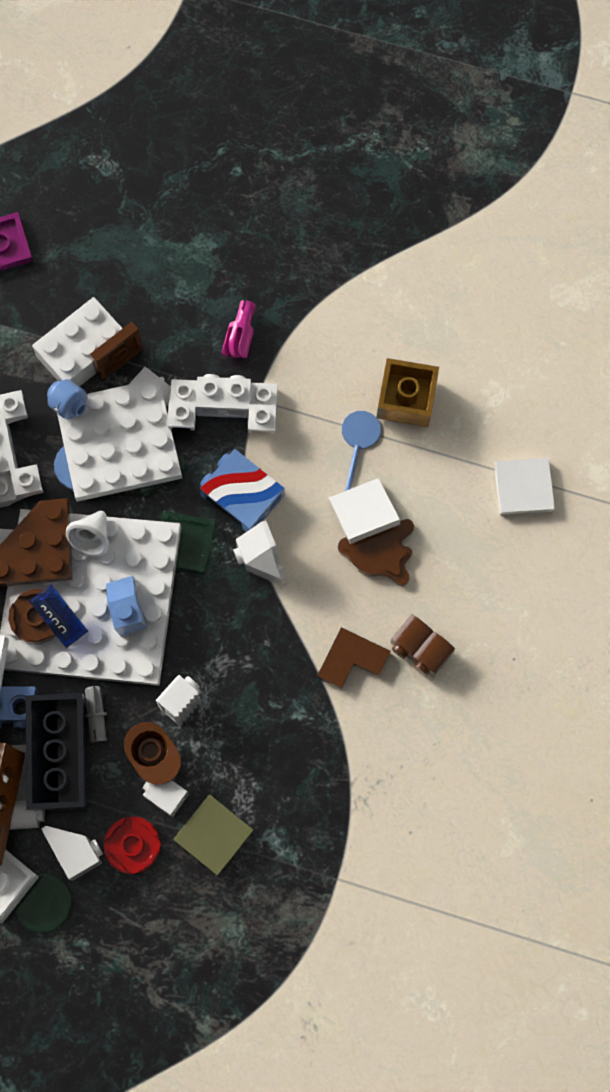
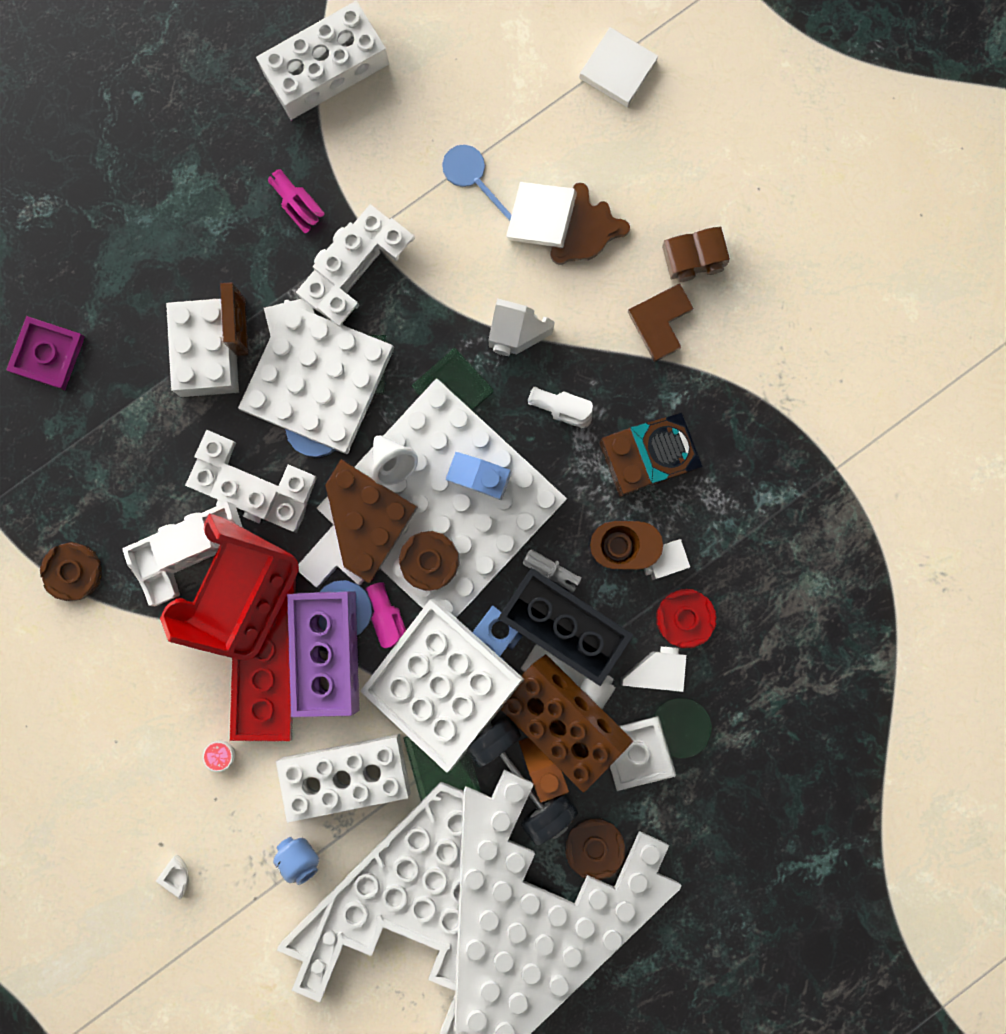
camera: 50 degrees left, 10 degrees up
(58, 616) = (446, 540): clear blue slope -> none
(67, 399) = (249, 393): medium blue head -> none
(180, 699) = (596, 488): white brick -> none
(213, 835) = (729, 544): olive tile -> none
(228, 632) = (563, 406): none -> white arm
(240, 724) = (650, 454): none -> slope
(242, 489) = (444, 303): panel -> none
(354, 260) = (323, 60): none -> white brick
(407, 392) = (464, 97): pearl gold brick -> none

